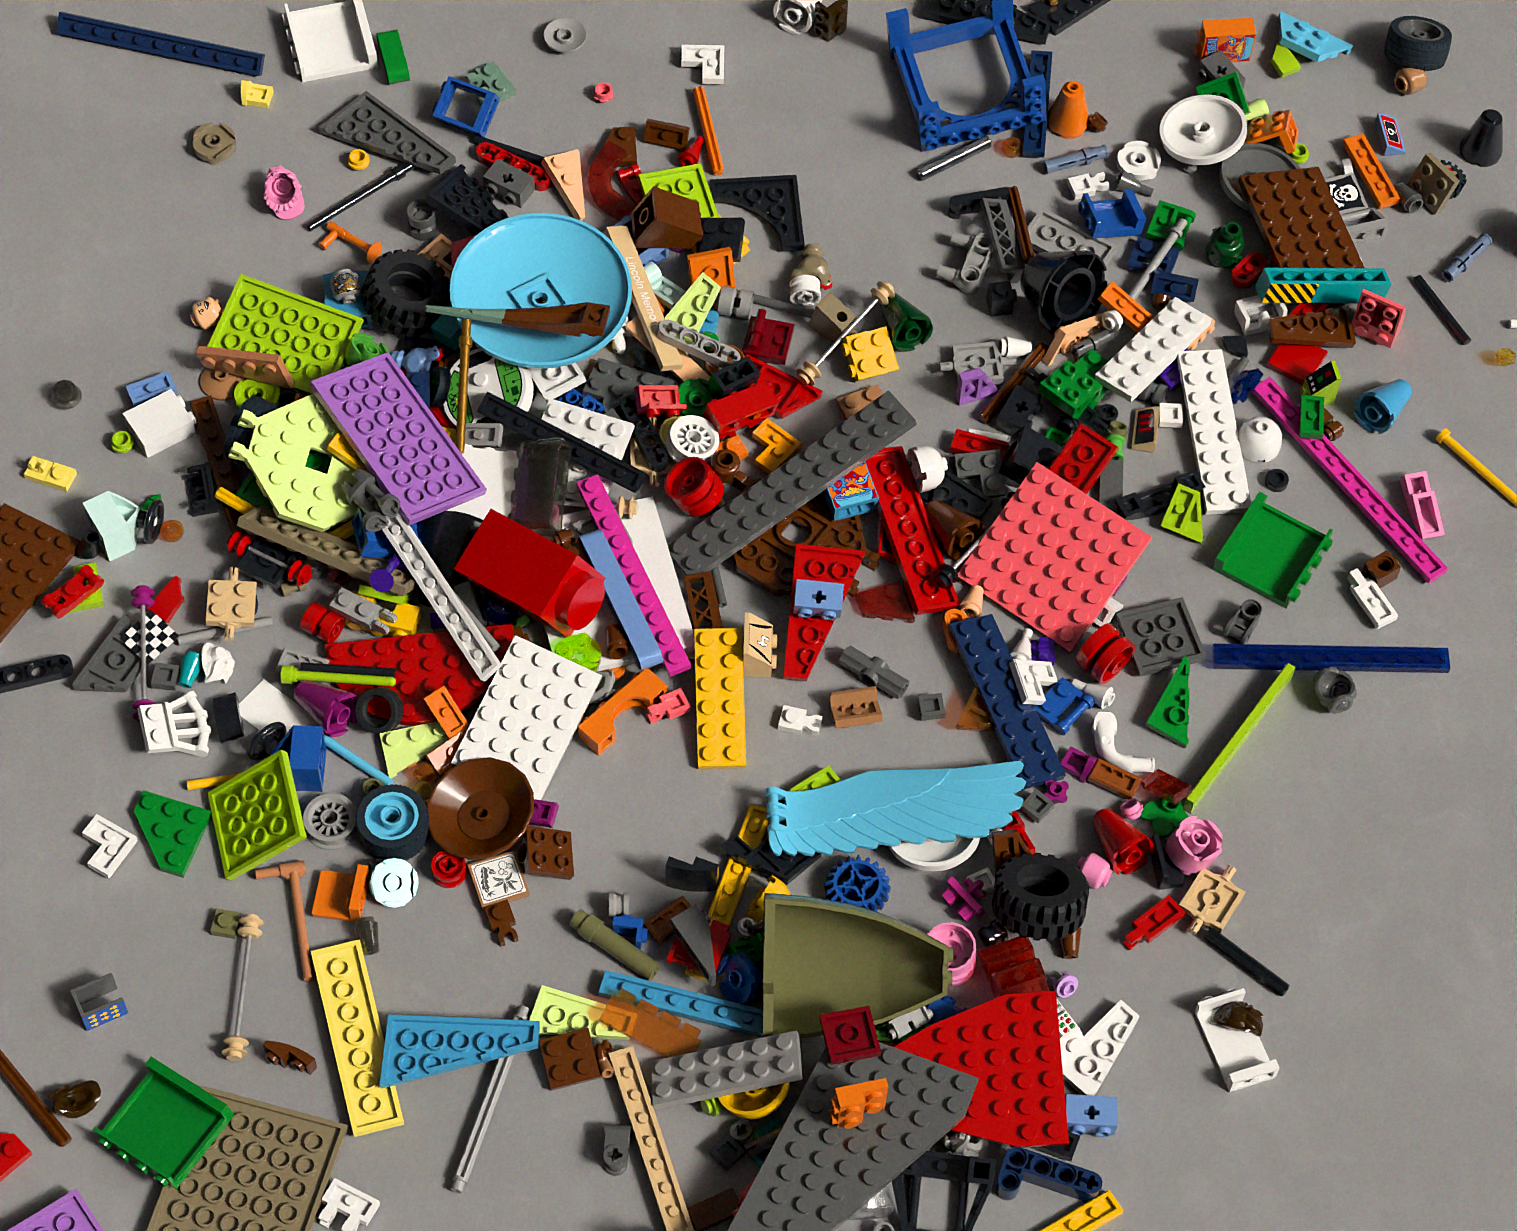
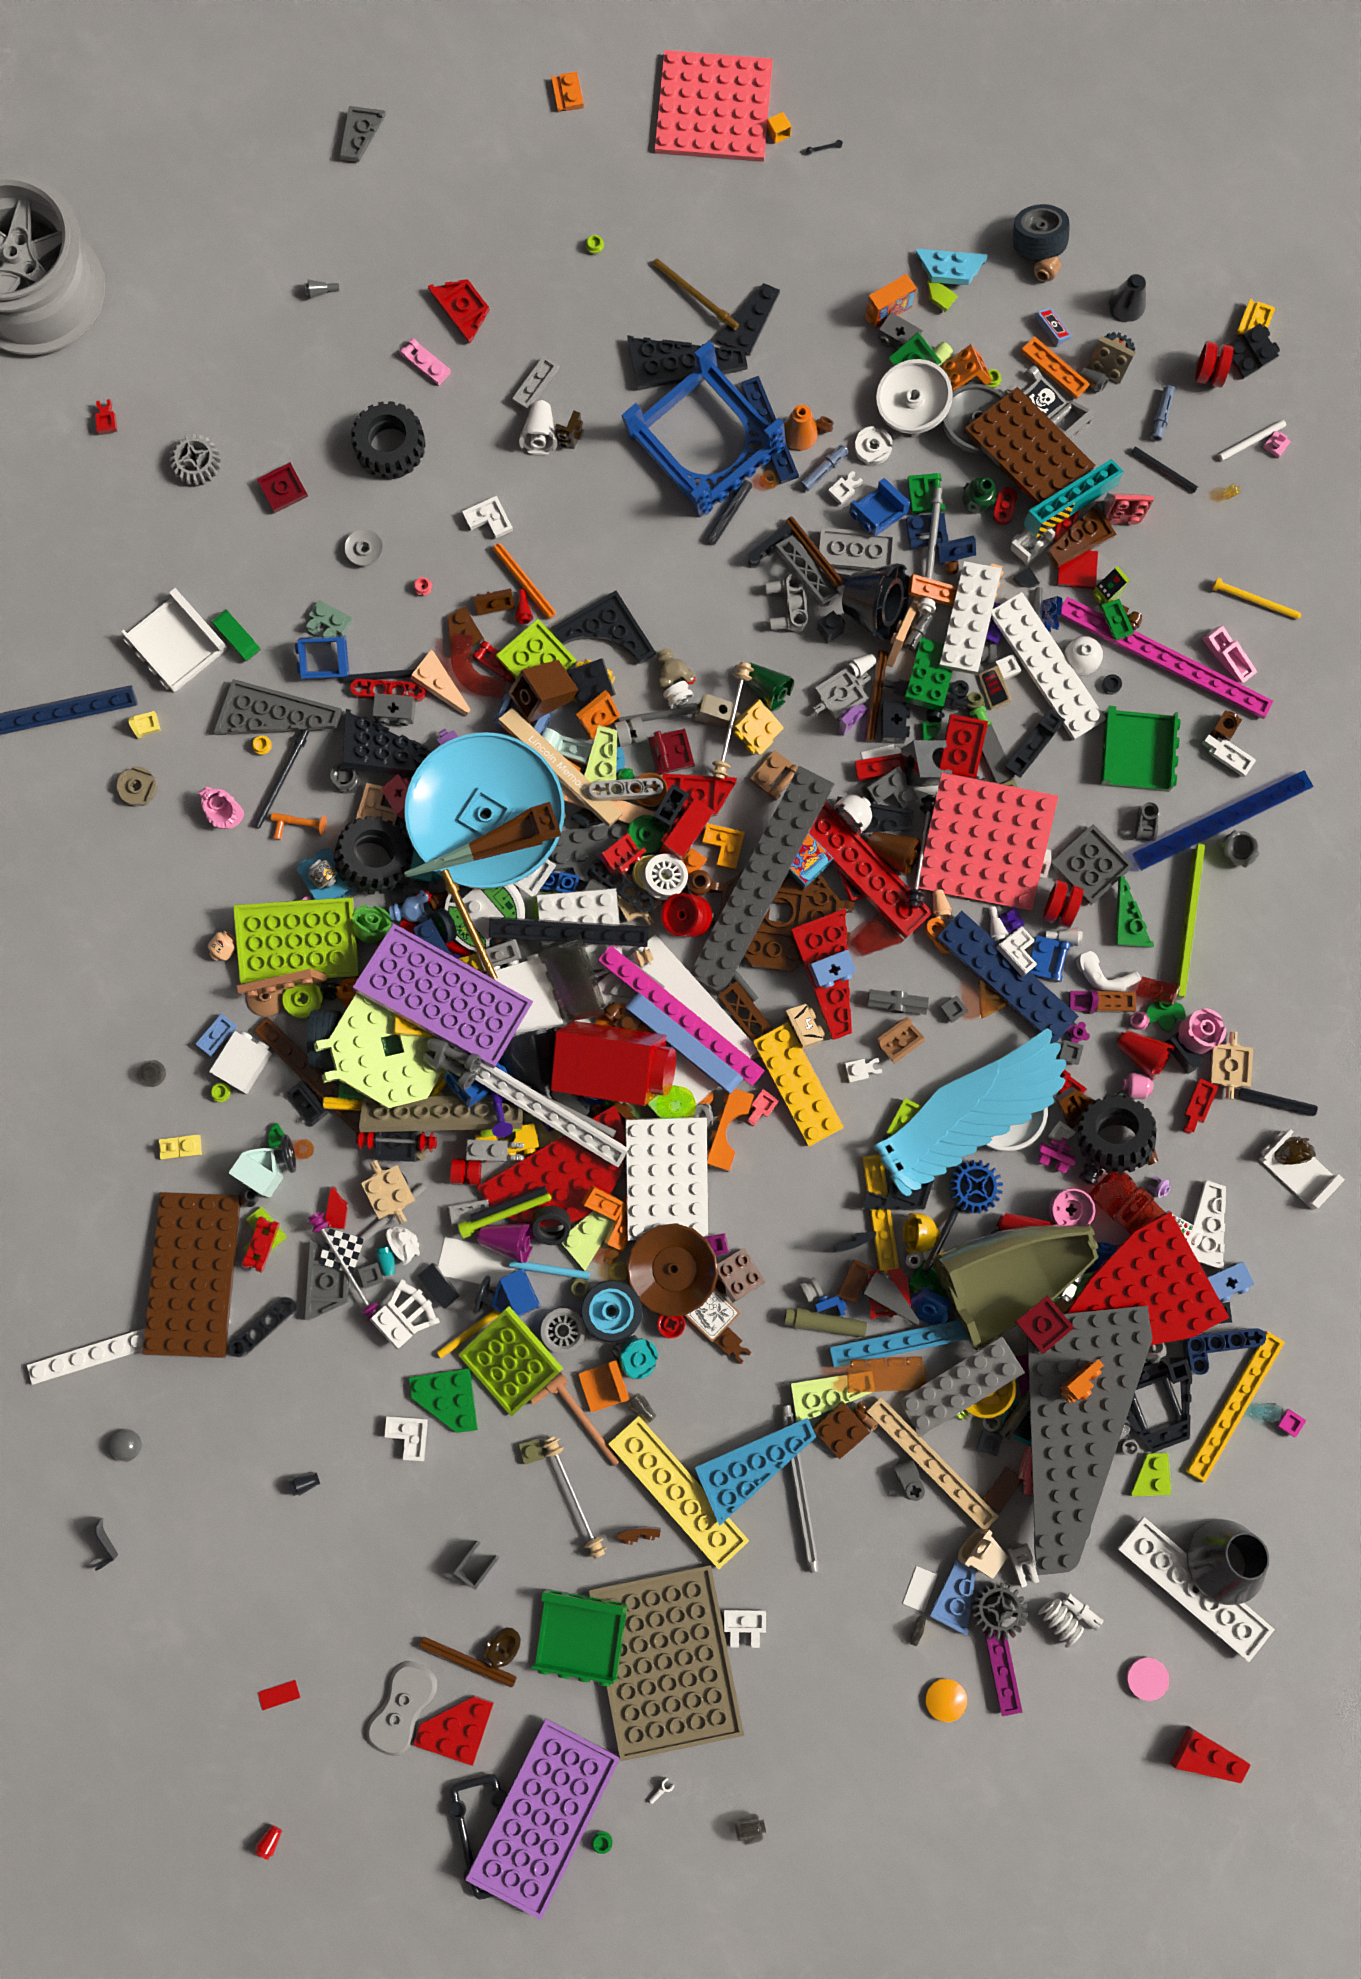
camera: 25 degrees left, 20 degrees up
(616, 644) = (699, 1080): reddish brown cone -> none
(1127, 181) = (875, 470): dark grey cone -> none
(1185, 514) = (1060, 750): lime wing -> none
(1382, 405) = (1163, 581): dark azure cone -> none

